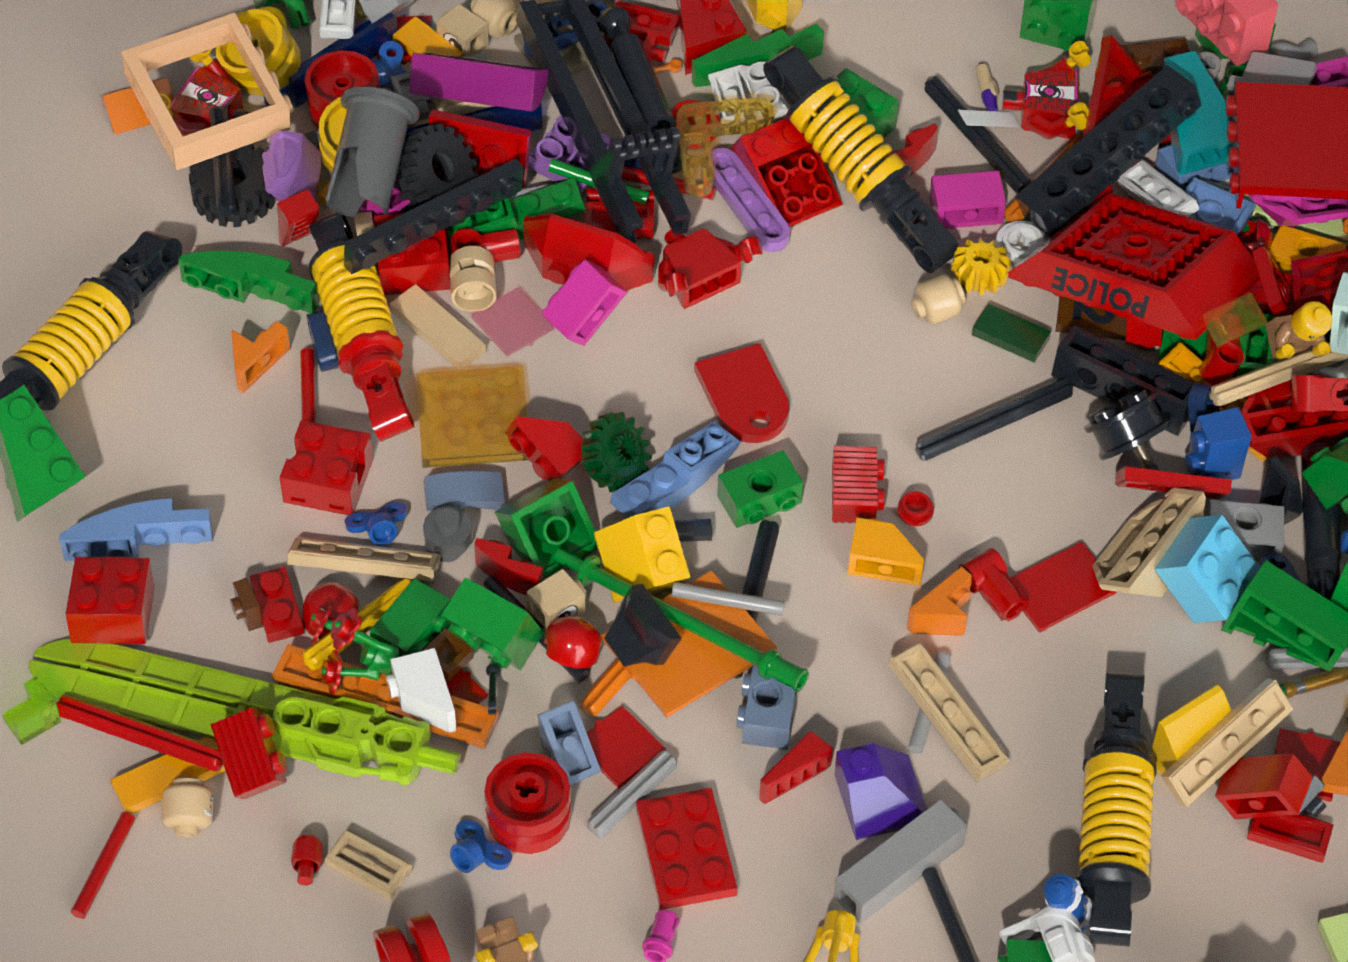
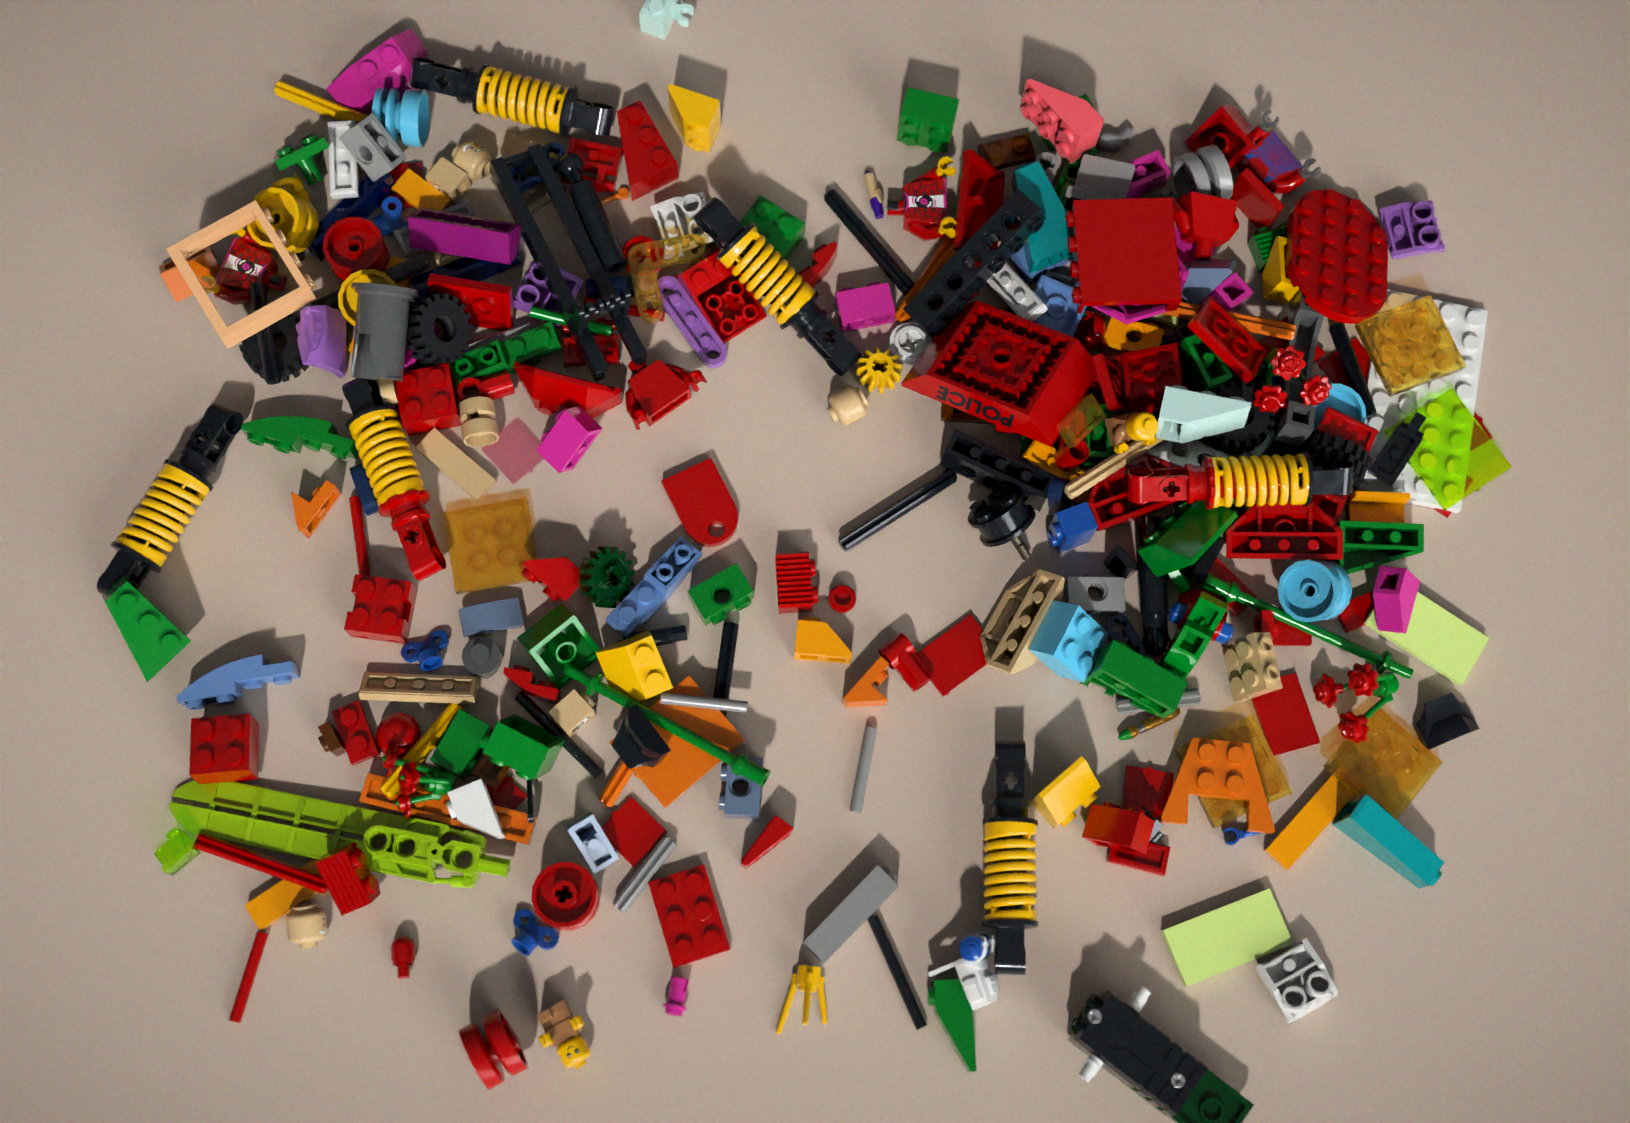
camera: 10 degrees left, 20 degrees up
(295, 216) = (330, 379): red slope -> none
(369, 881) = (473, 966): tan tile -> none
(433, 216) = (434, 385): black plate -> none
(573, 642) = (587, 749): red hair -> none
(747, 52) = (696, 180): green slope -> none
(877, 789) = (832, 854): dark purple slope -> none
(948, 712) = (878, 780): tan tile -> none
(989, 118) = (877, 226): white sticker -> none
(1011, 333) = (906, 427): dark green tile -> none
(1164, 481) = (1038, 560): red tile -> none
(1227, 742) = (1090, 796): tan tile -> none

